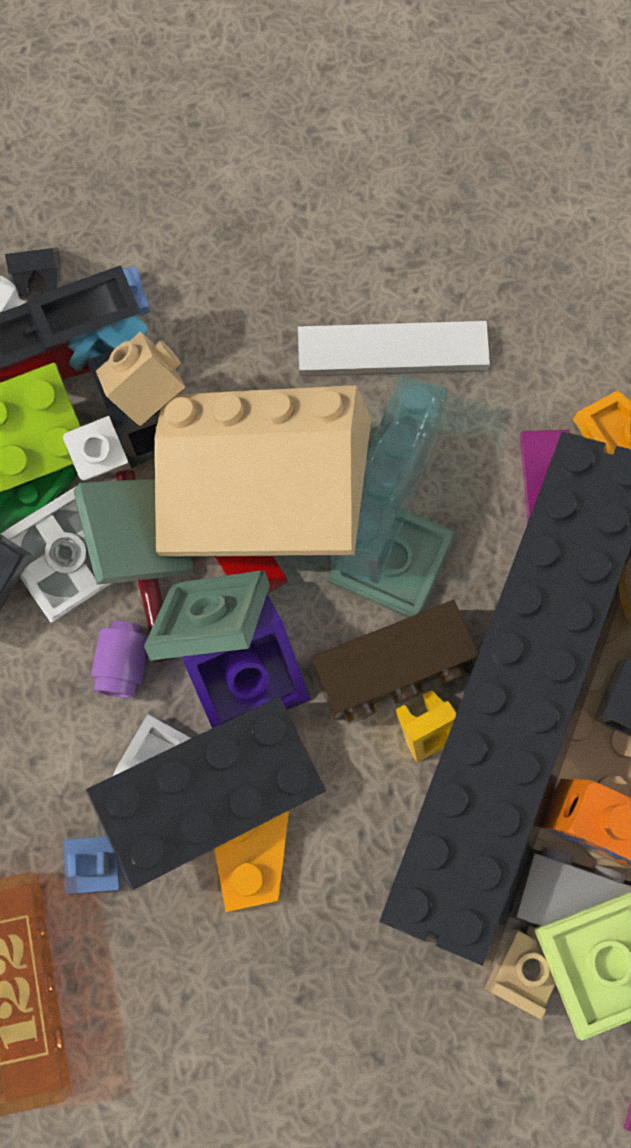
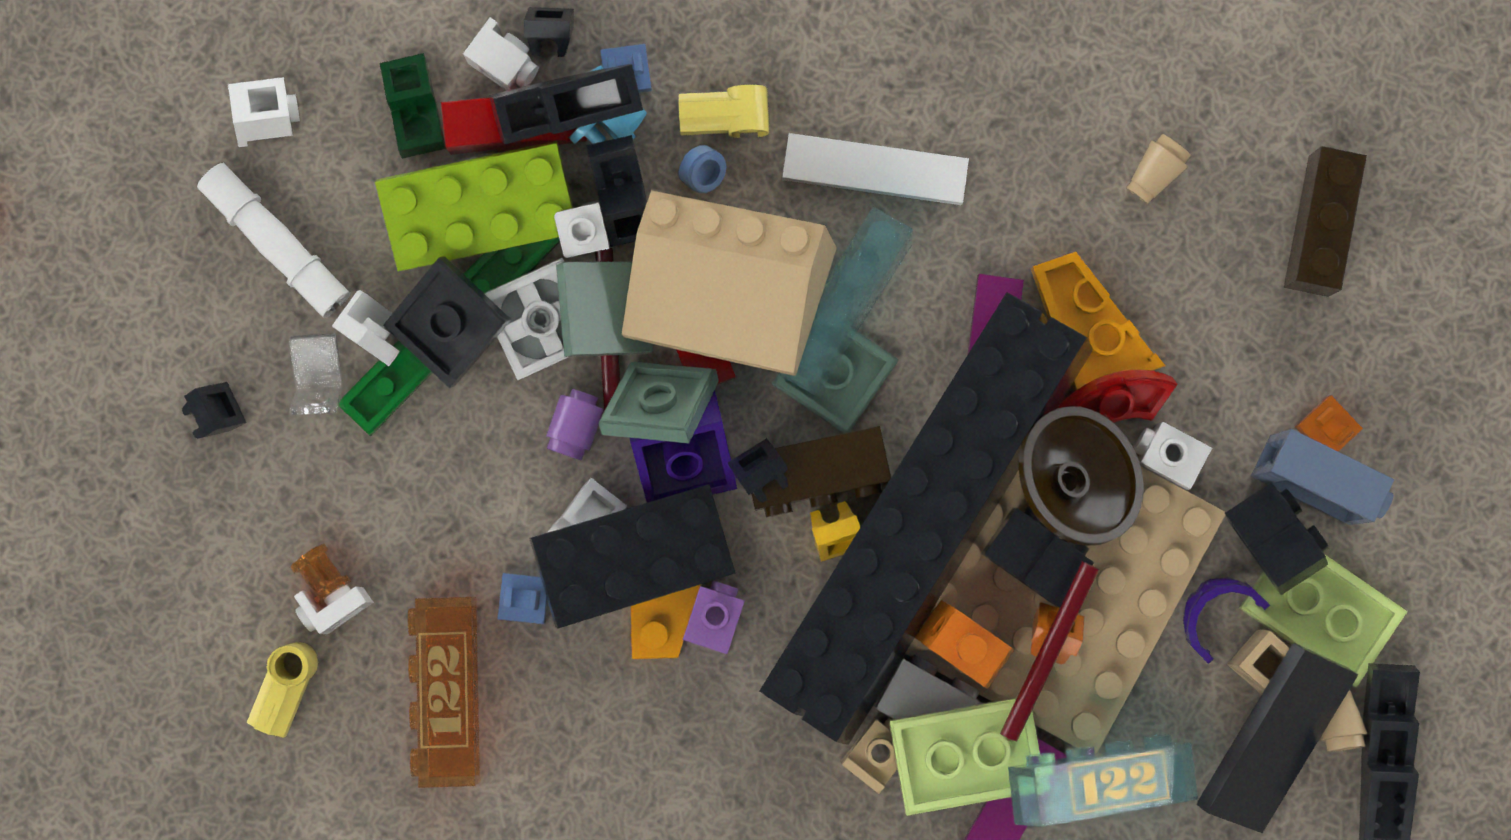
camera: 10 degrees right, 10 degrees up
(141, 377) = (633, 175): tan brick -> none
(214, 372) = (702, 169): none -> medium blue tile
(238, 315) = (731, 112): none -> light yellow piece
(311, 845) = (714, 617): none -> medium lavender brick
(331, 664) = (759, 467): none -> black tile

